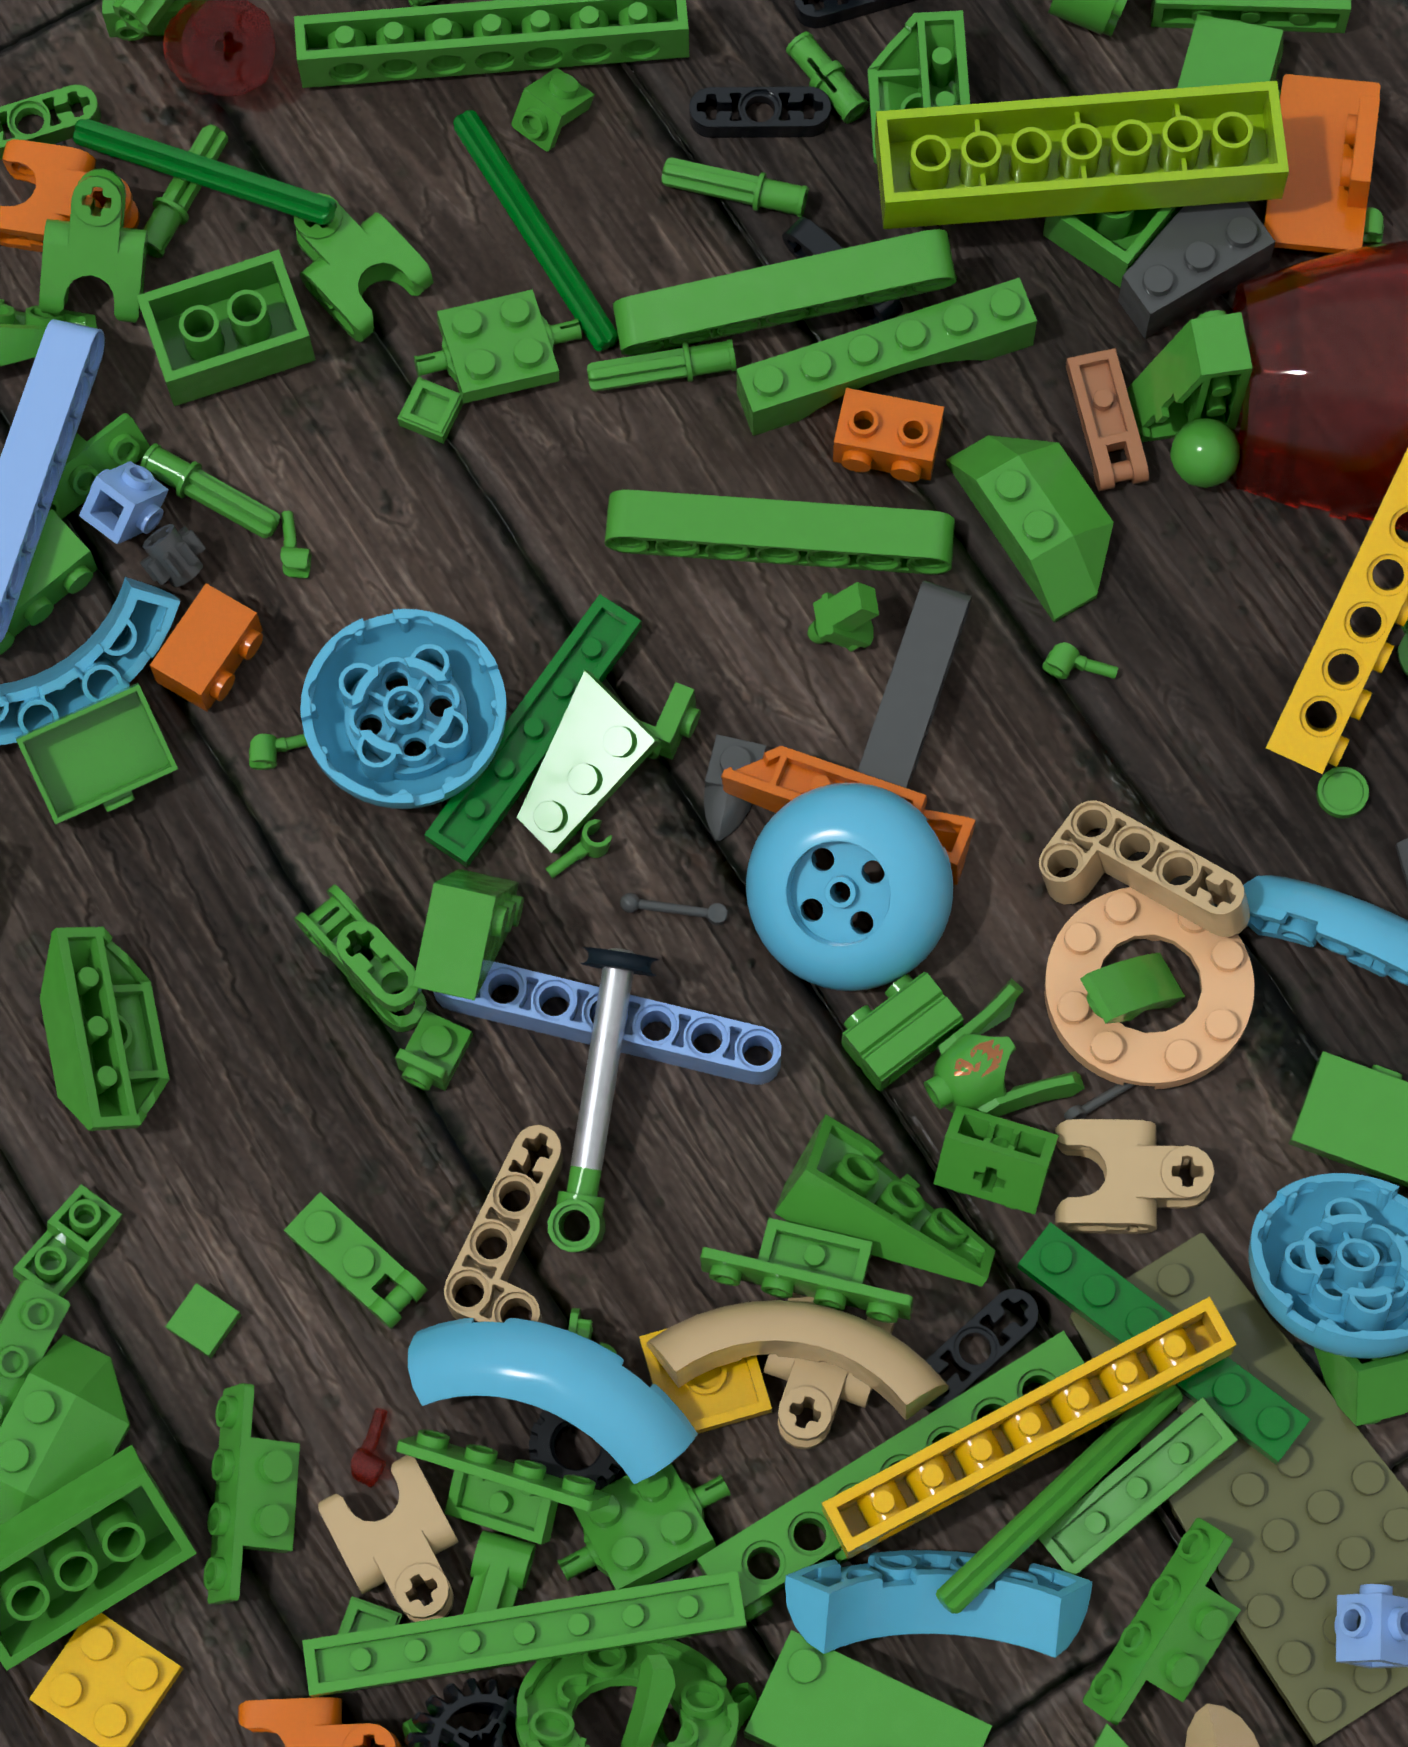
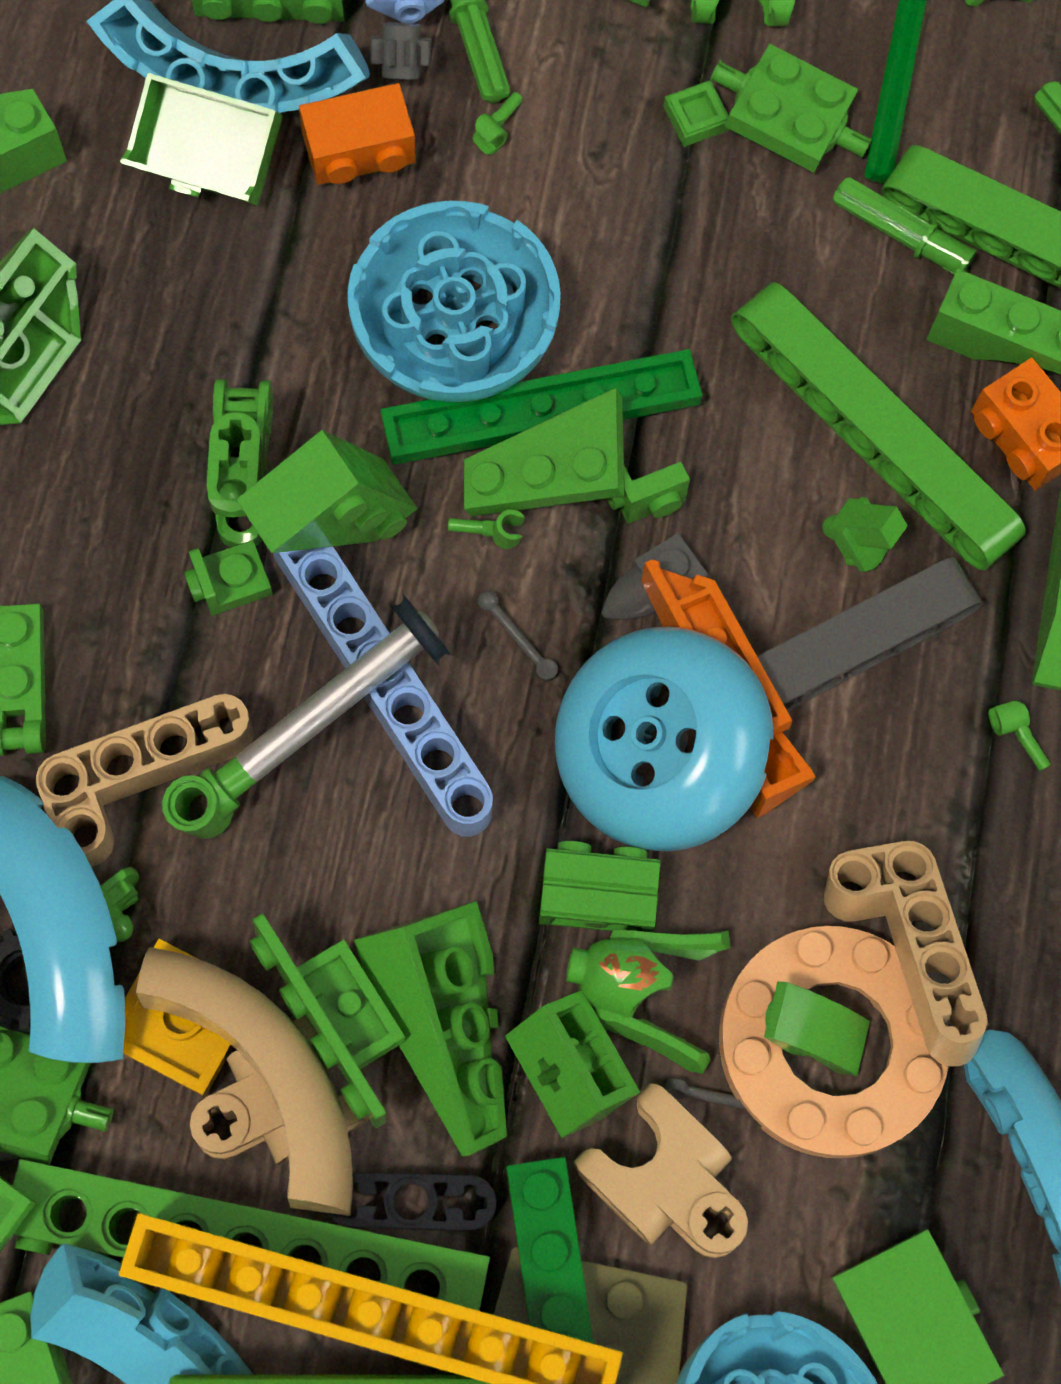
camera: 35 degrees right, 0 degrees up
(265, 747) = (329, 246): bright green hand -> none

